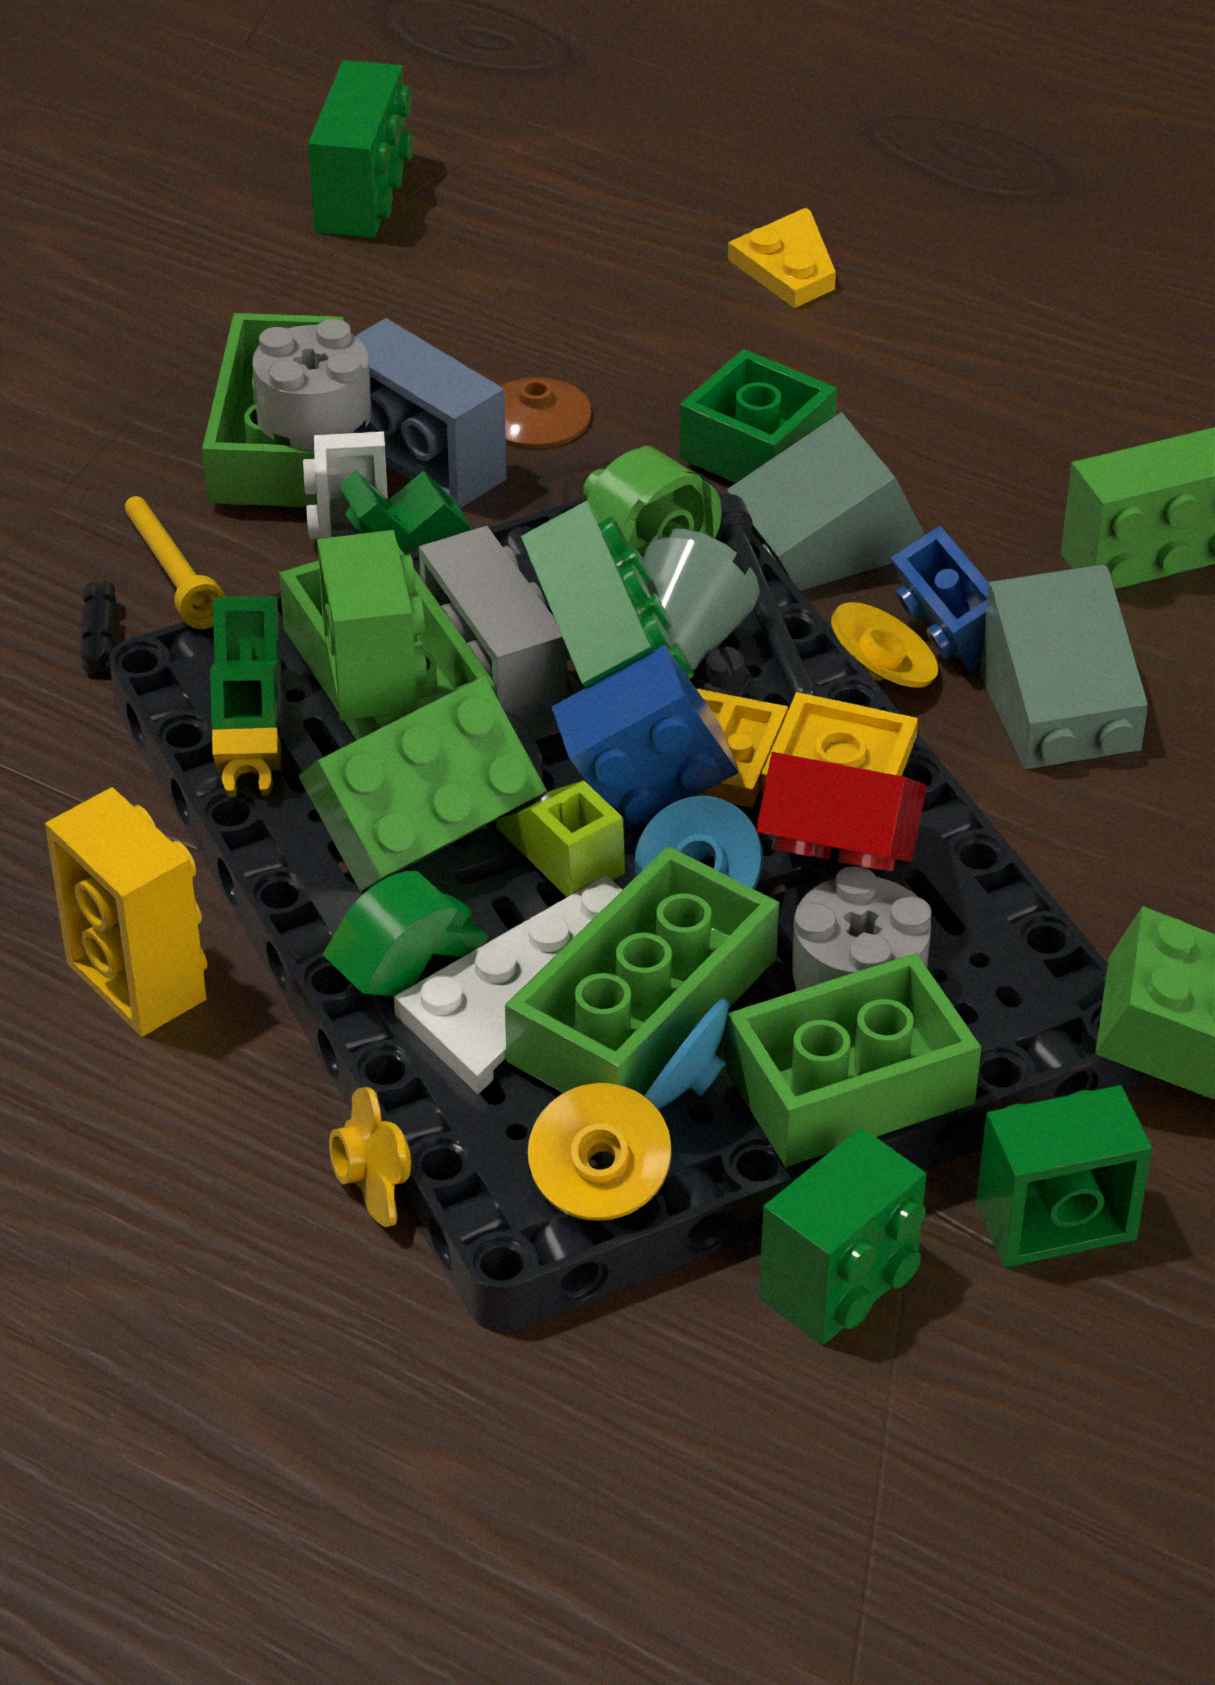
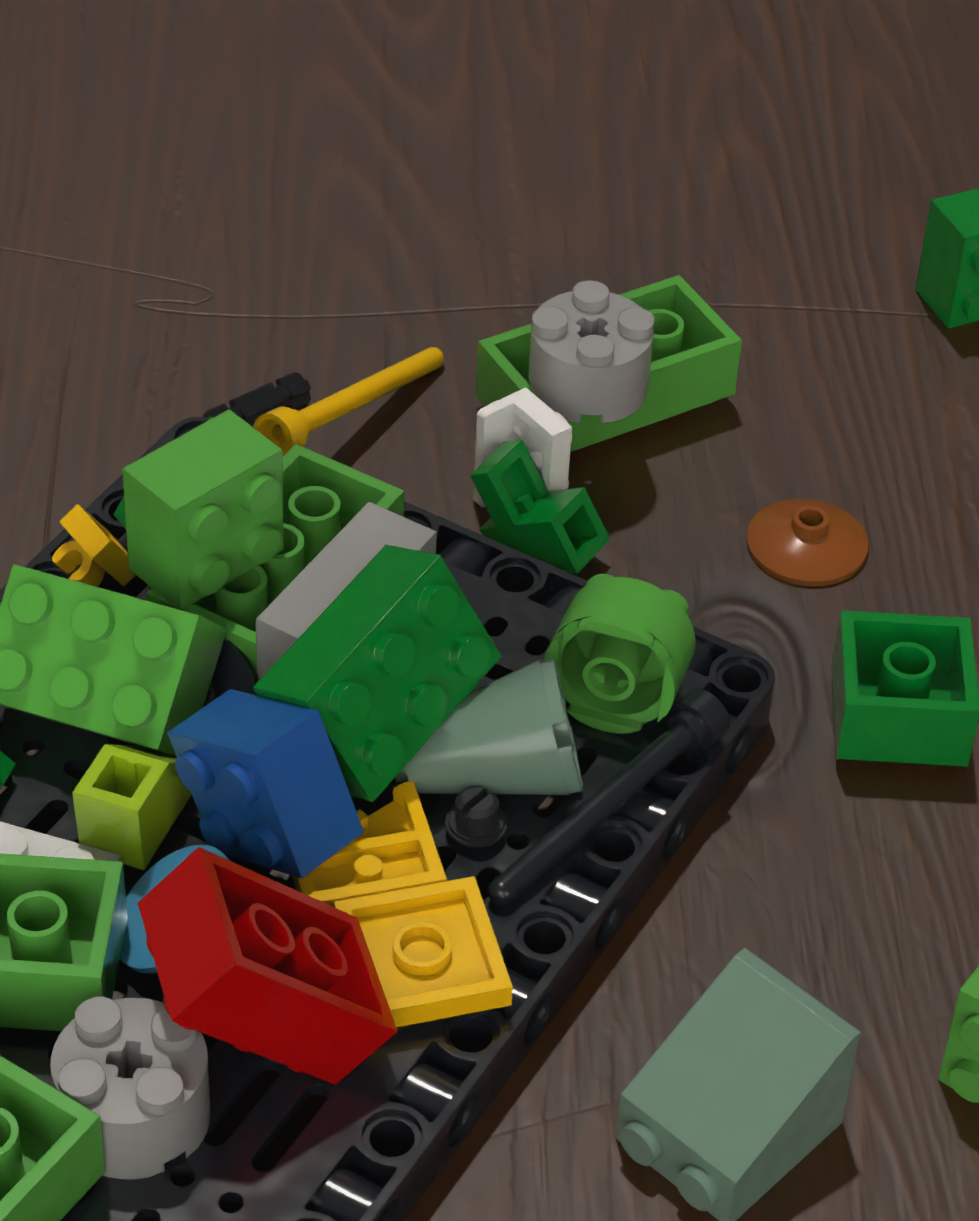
camera: 55 degrees right, 0 degrees up
(434, 414) = (682, 456): sand blue brick -> none
(828, 507) = (833, 802): sand green slope -> none
(884, 645) = (687, 917): yellow dish -> none
(946, 593) = (787, 924): blue brick -> none

